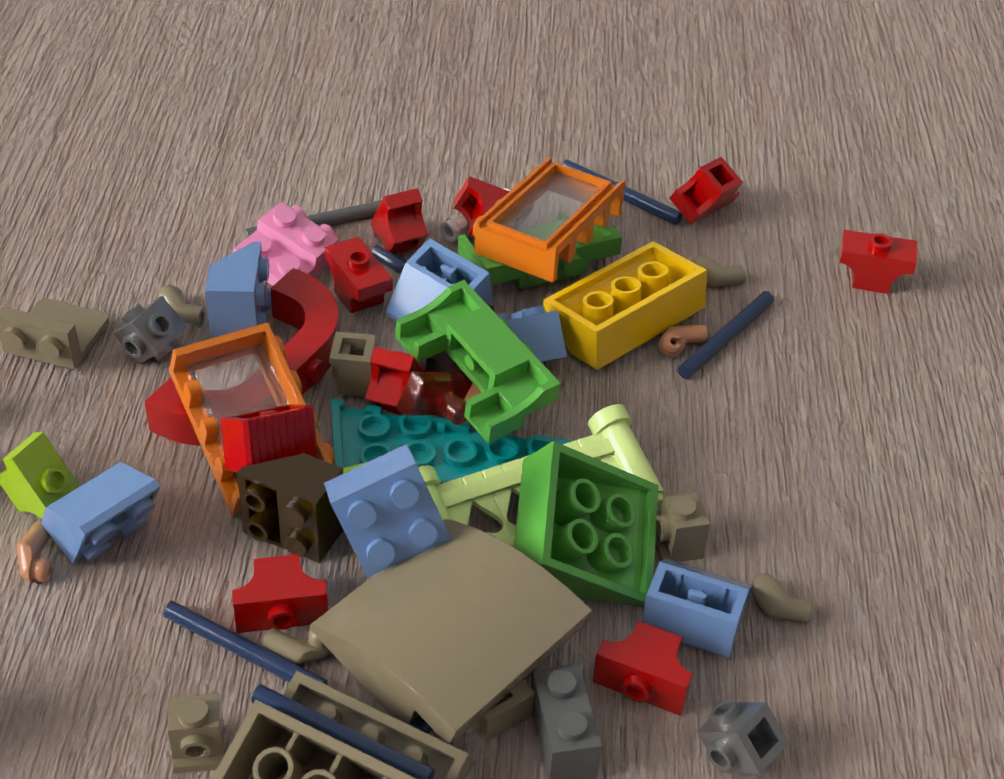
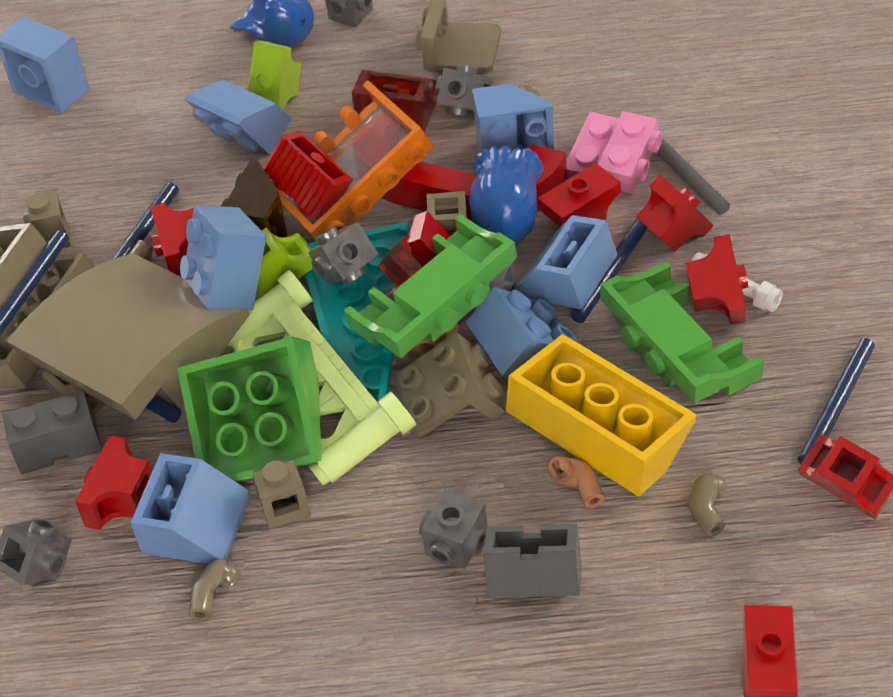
camera: 90 degrees right, 5 degrees up
(125, 382) = (409, 93): none -> clear red slope
(339, 307) = (505, 191): none -> blue piece
(389, 426) = (342, 254): none -> flat silver brick
(546, 218) = (689, 306): orange window -> none
(579, 398) = (447, 382): none -> dark tan bracket
(725, 335) = (605, 524): dark blue bar -> none
(741, 409) = (454, 529): none -> flat silver brick
(782, 364) = (533, 562): none -> dark grey brick

